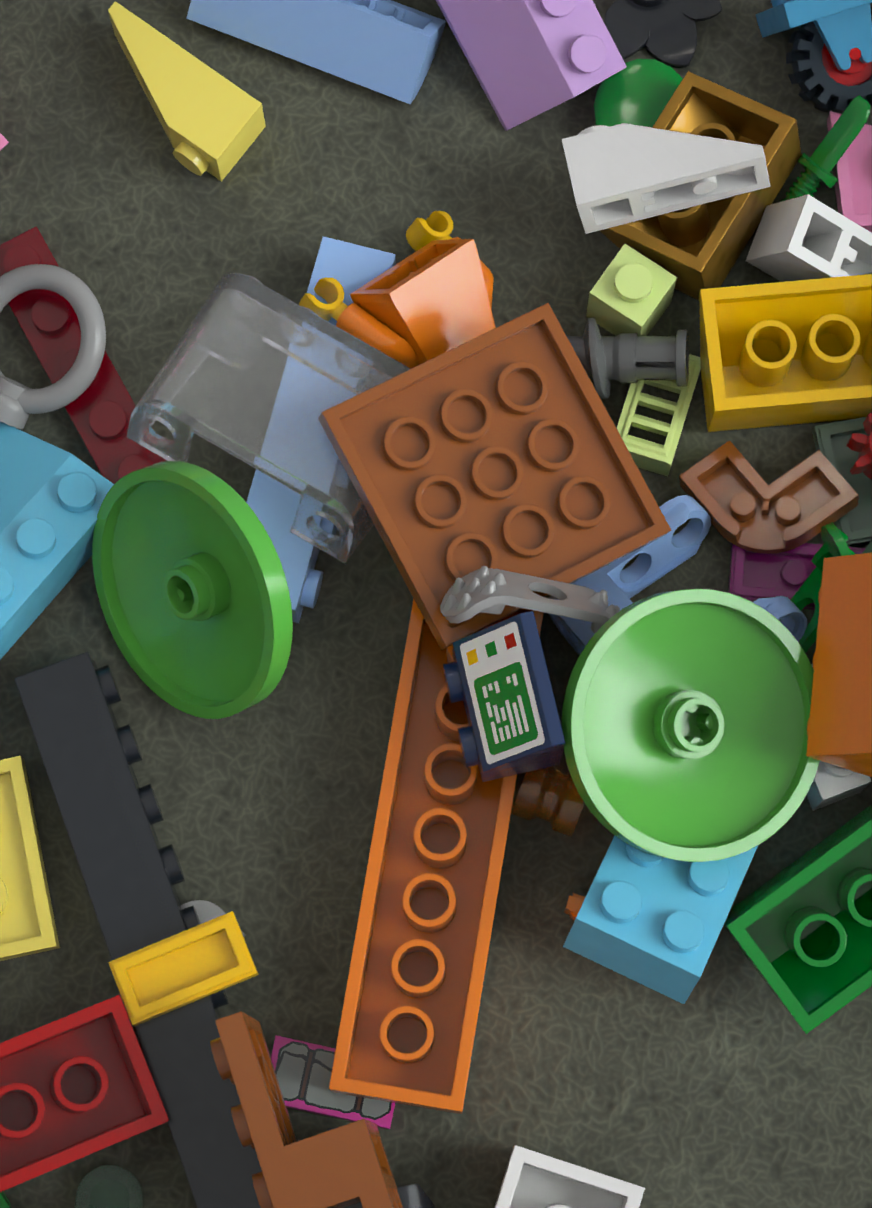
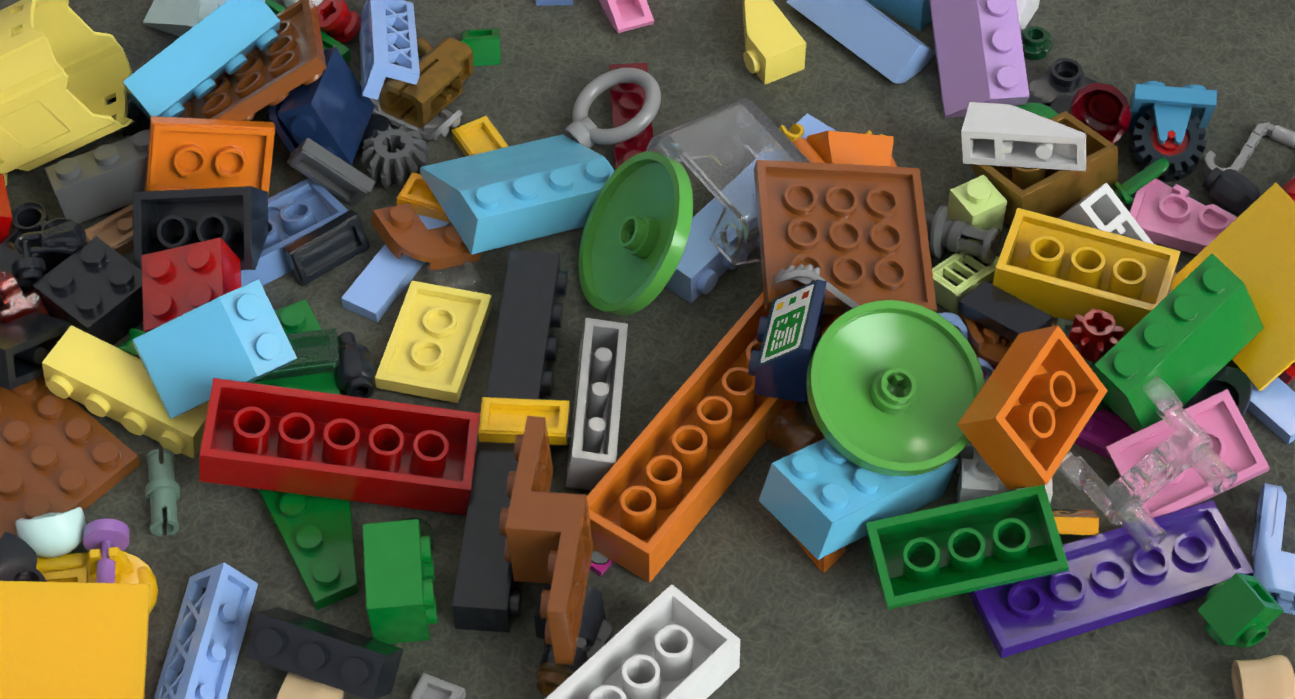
camera: 25 degrees right, 25 degrees down
(263, 880) = (596, 403): none -> light grey brick
(736, 50) = (1102, 109): none -> dark red hair
(752, 471) = (1002, 311): none -> black tile

